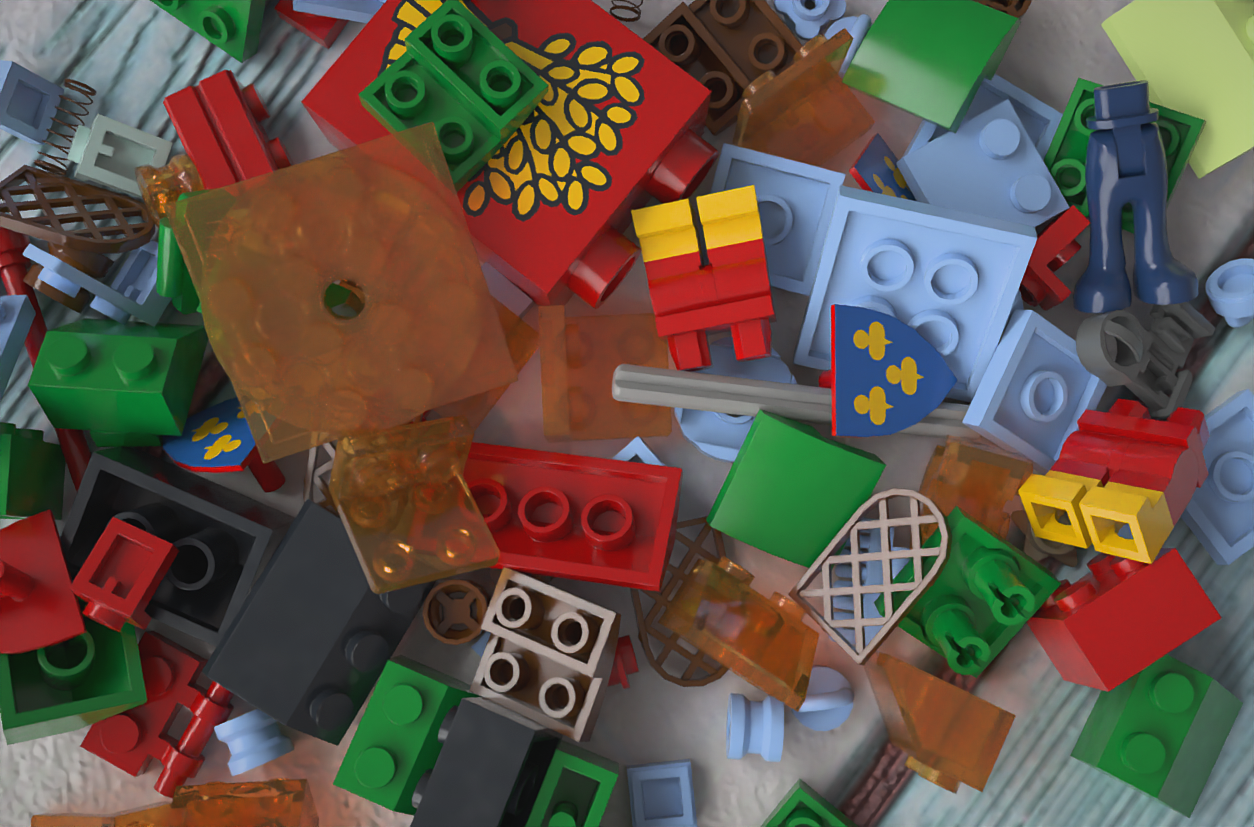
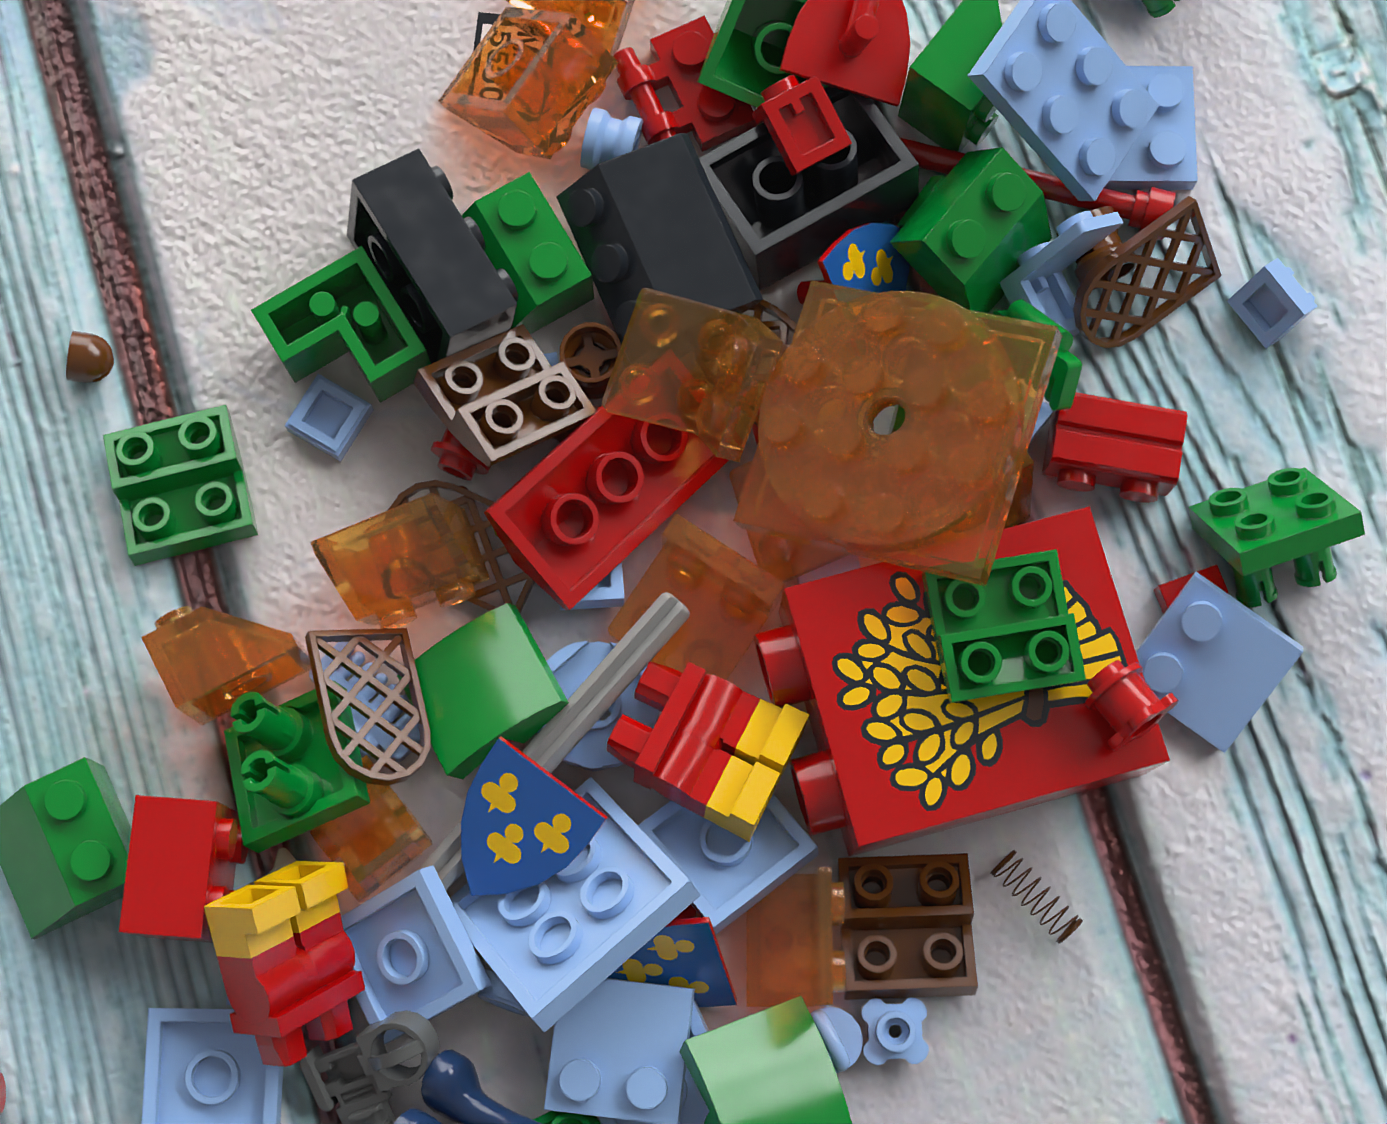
camera: 125 degrees right, 5 degrees down
(55, 169) = (1200, 296): reddish brown piece -> none
(112, 151) = (1168, 350): light aqua bracket -> none
(167, 183) = (1106, 369): clear orange wheel -> none
(754, 728) = (321, 516): light blue wheel -> none
(827, 700) = (306, 596): light blue tile -> none
(1052, 250) = (521, 1072): red bracket -> none

